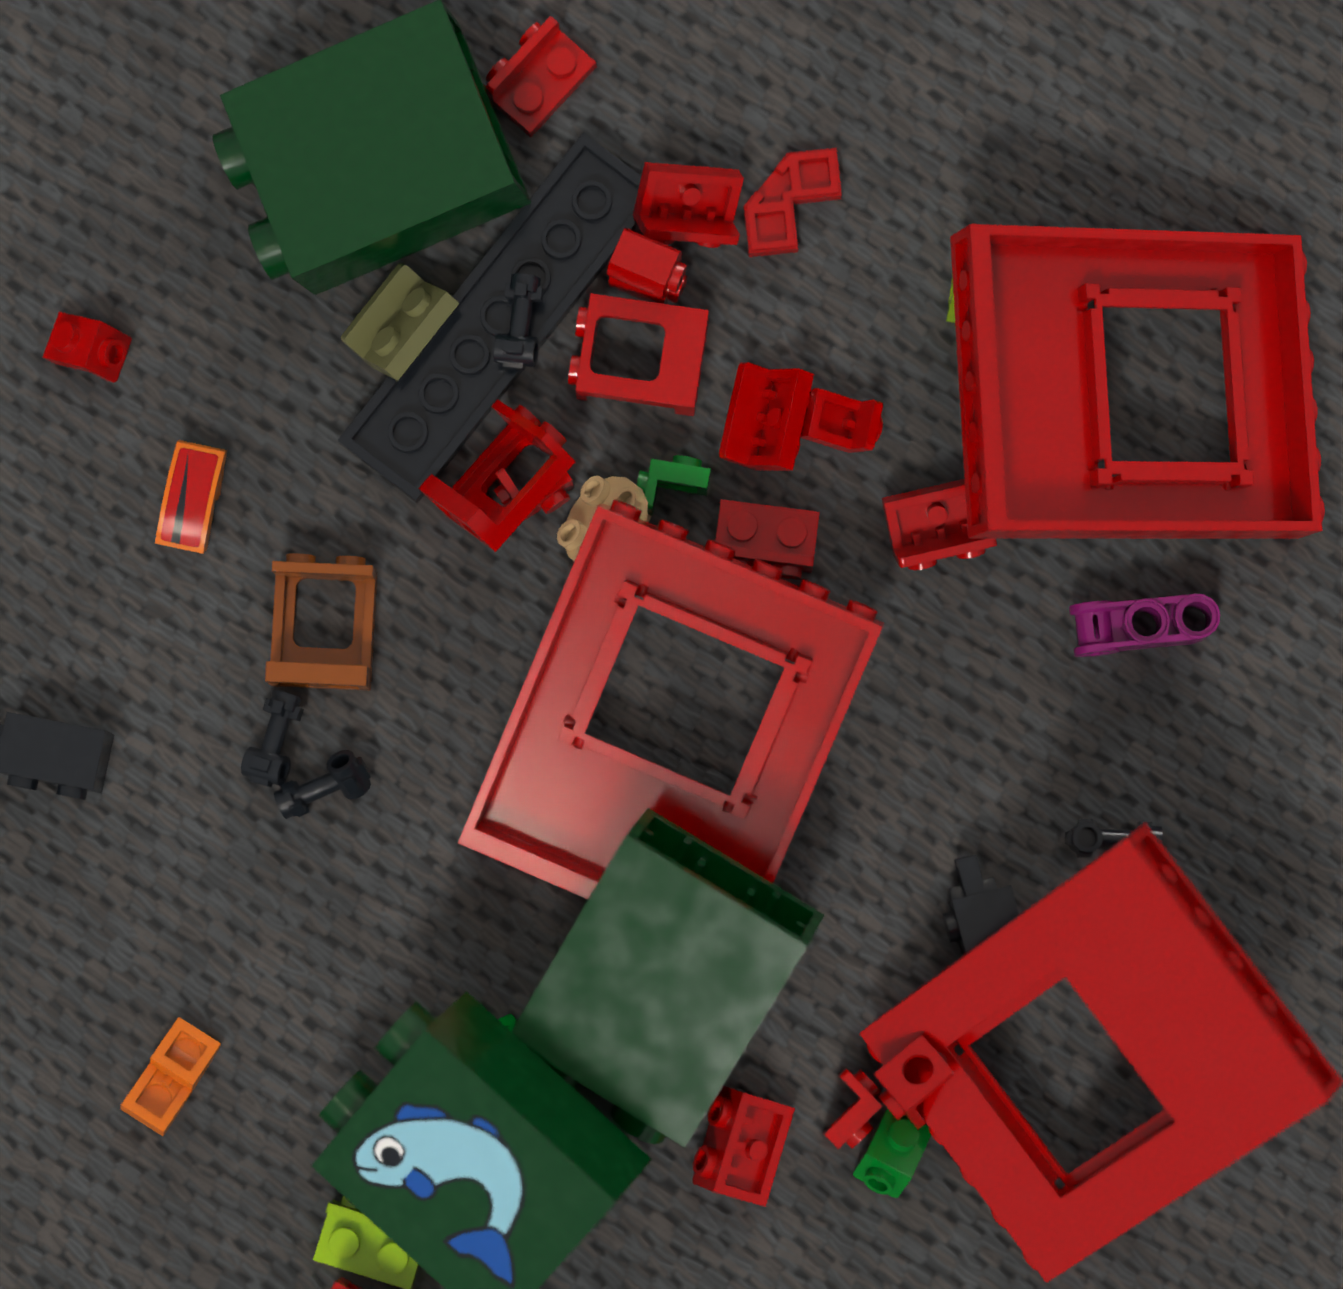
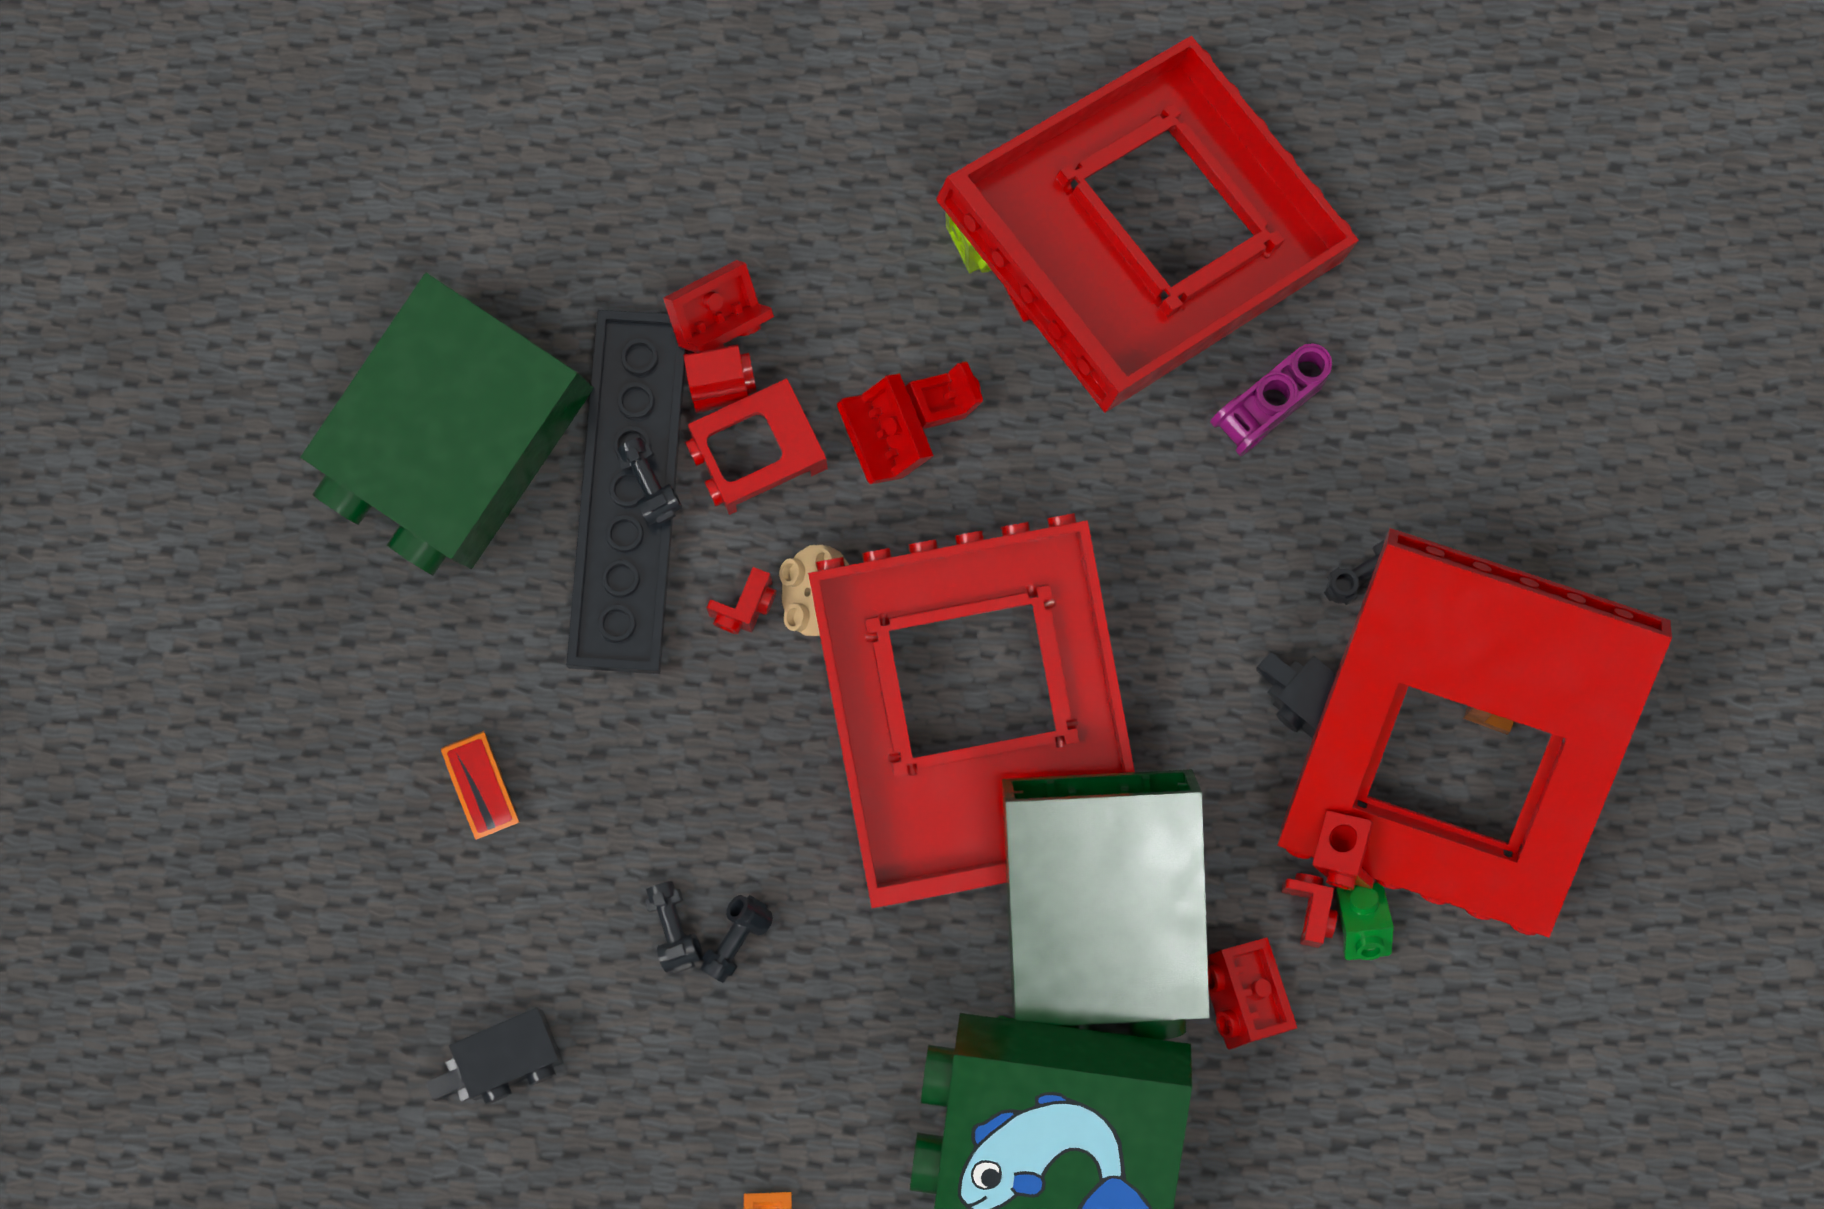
camera: 35 degrees left, 5 degrees down
(87, 346) = (319, 723): red bracket -> none
(322, 667) = (672, 847): dark orange window -> none
(398, 322) = (553, 544): olive bracket -> none
(467, 499) = (720, 647): red window -> none
(538, 76) = (534, 290): red bracket -> none
(681, 475) = (849, 517): green bracket -> none
(769, 534) = (947, 514): red bracket -> none
(796, 180) = (783, 242): red tile -> none
(931, 526) = (1067, 427): red bracket -> none

